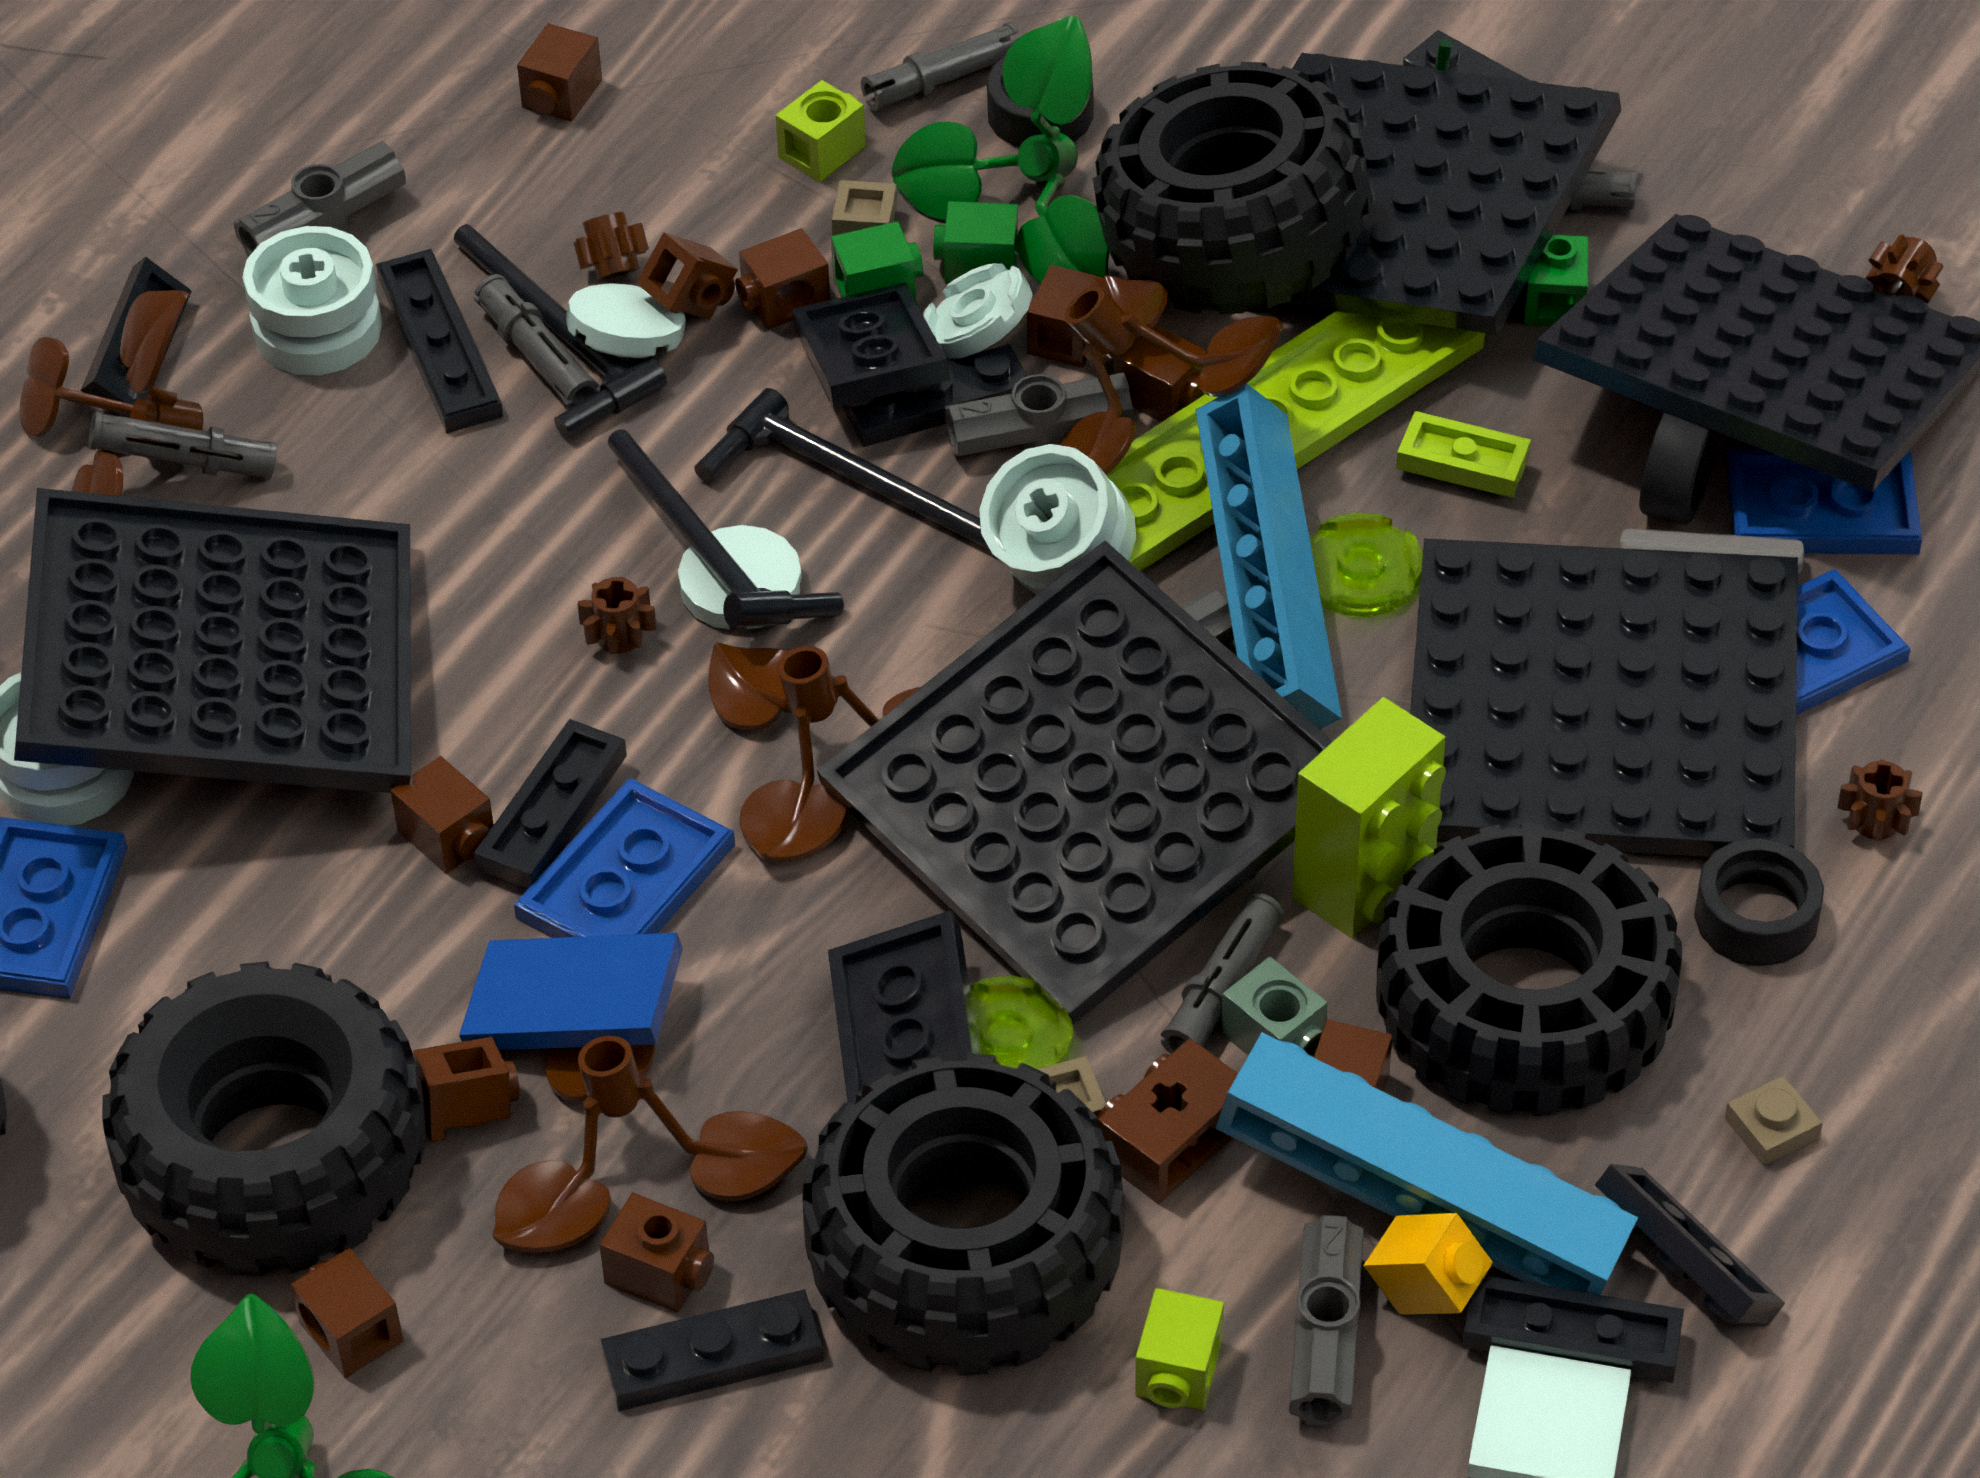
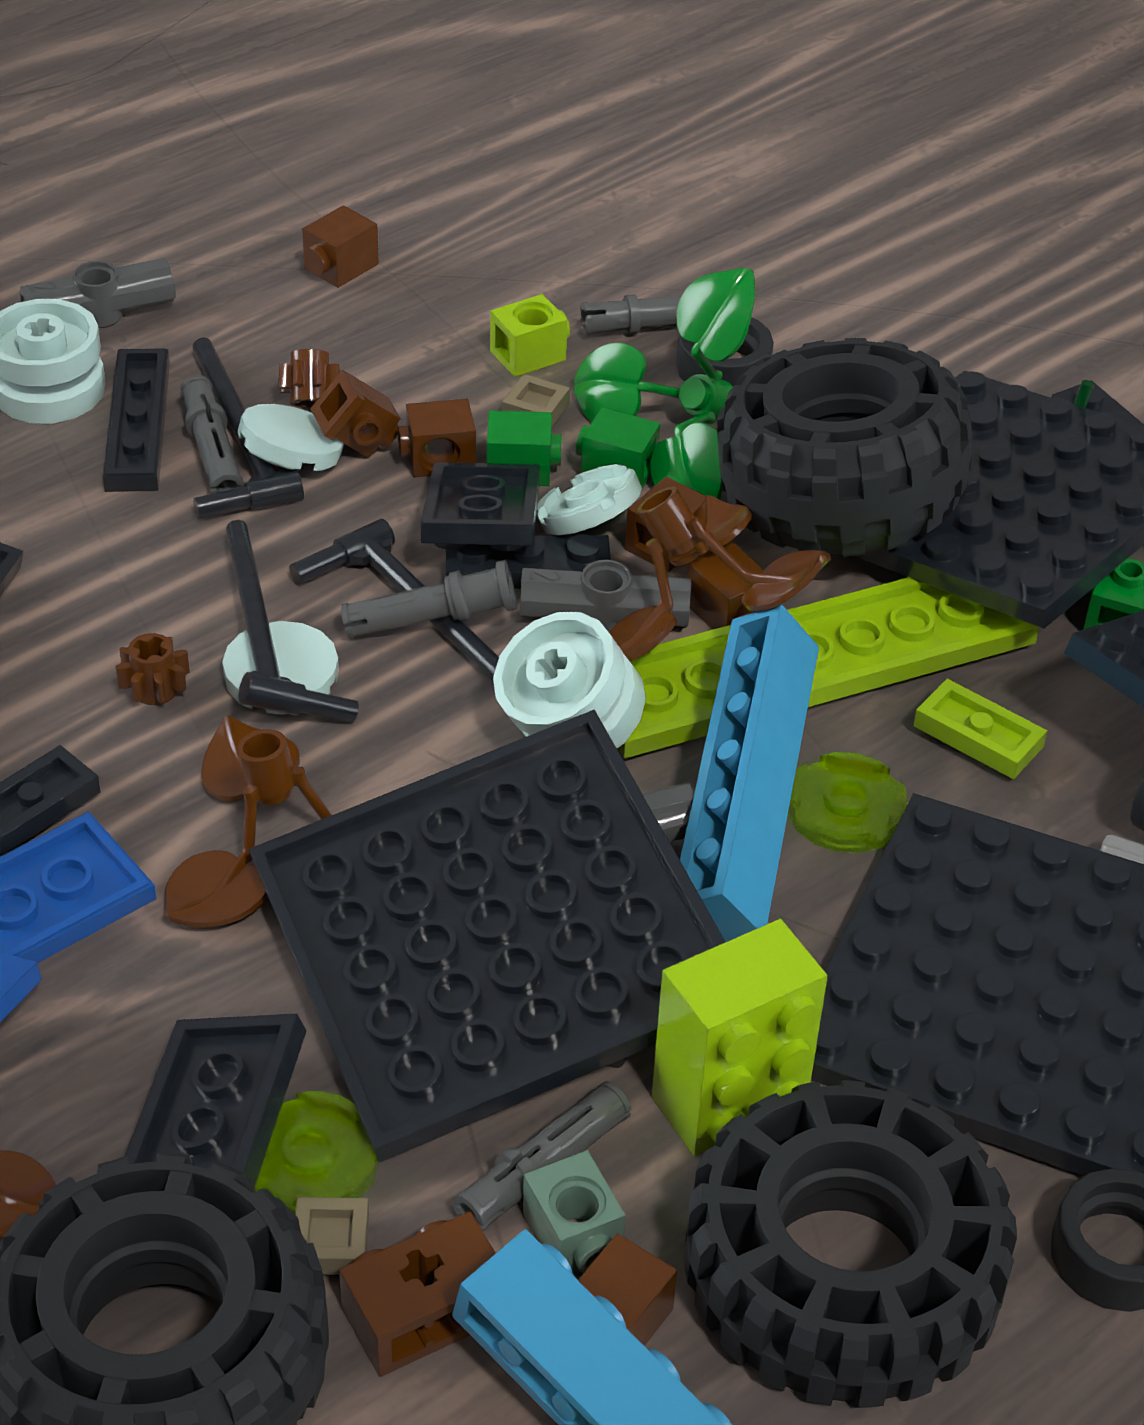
camera: 15 degrees right, 5 degrees down
(893, 455) = (457, 596): none -> dark grey pin

